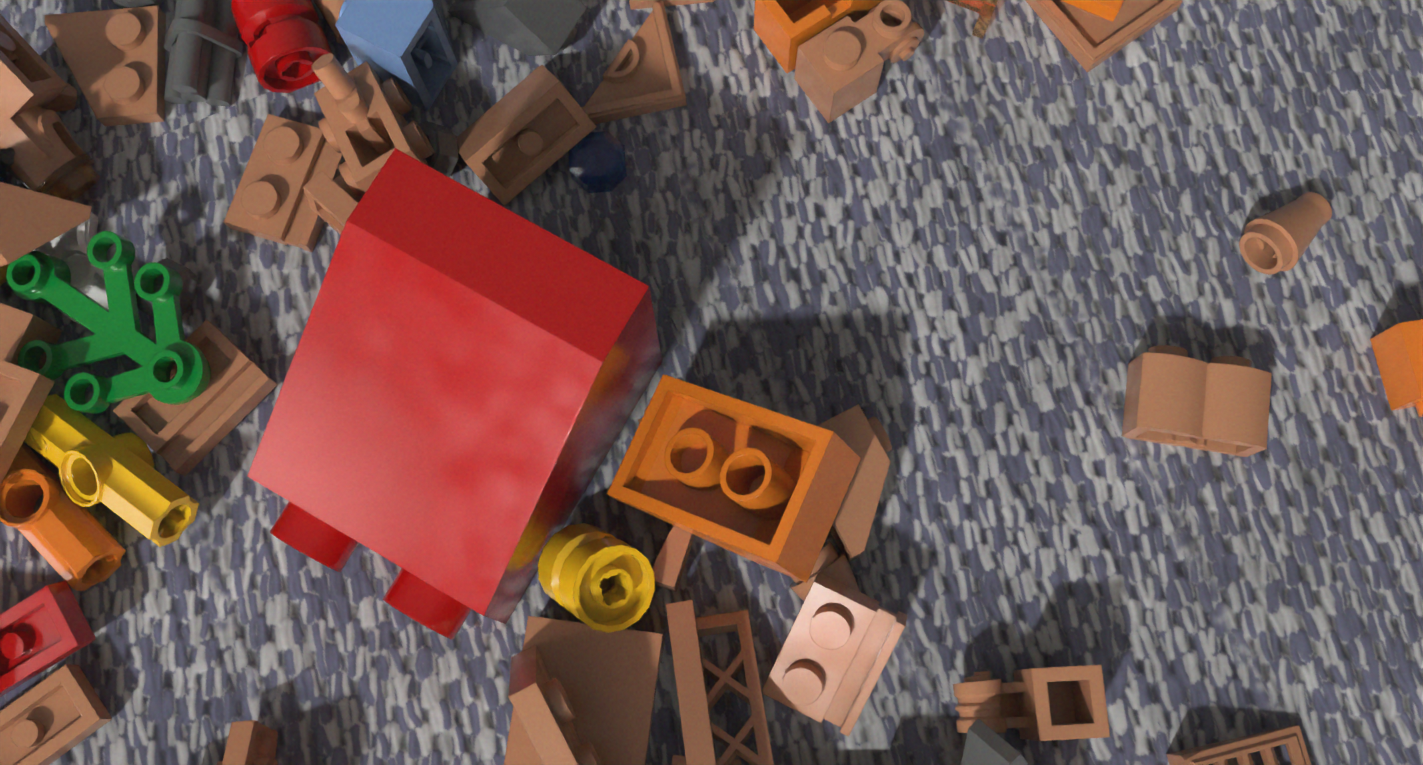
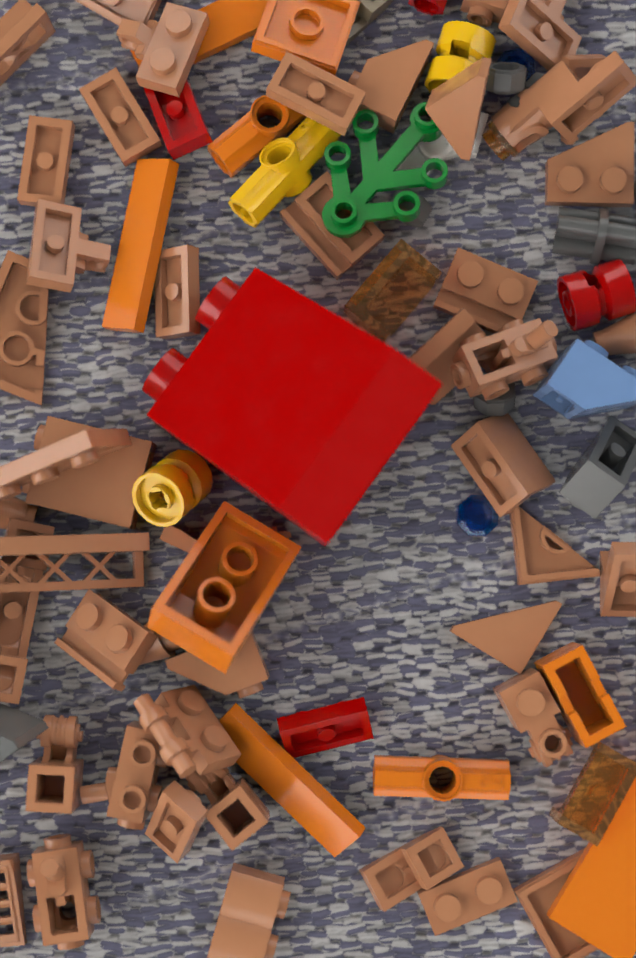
camera: 90 degrees right, 10 degrees up
(231, 676) = (140, 245): none -> orange tile
(268, 289) = (392, 291): none -> clear orange panel
(301, 611) = (177, 293): none -> nougat plate
(755, 105) = (510, 635): none -> nougat tile
(914, 326) = (325, 727): none -> red plate
(951, 510) = (187, 731): none -> nougat plate
(960, 201) = (470, 777): none -> orange piece
(994, 374) = (291, 784): none -> orange tile
(1038, 584) = (131, 784): none -> nougat brick
(1039, 443) = (233, 805): none -> nougat brick
(1080, 194) = (411, 868): none -> nougat slope
(1082, 510) = (176, 820): none -> nougat plate
(1108, 124) = (467, 896): none -> nougat plate
(1191, 680) = (61, 876): none -> nougat brick

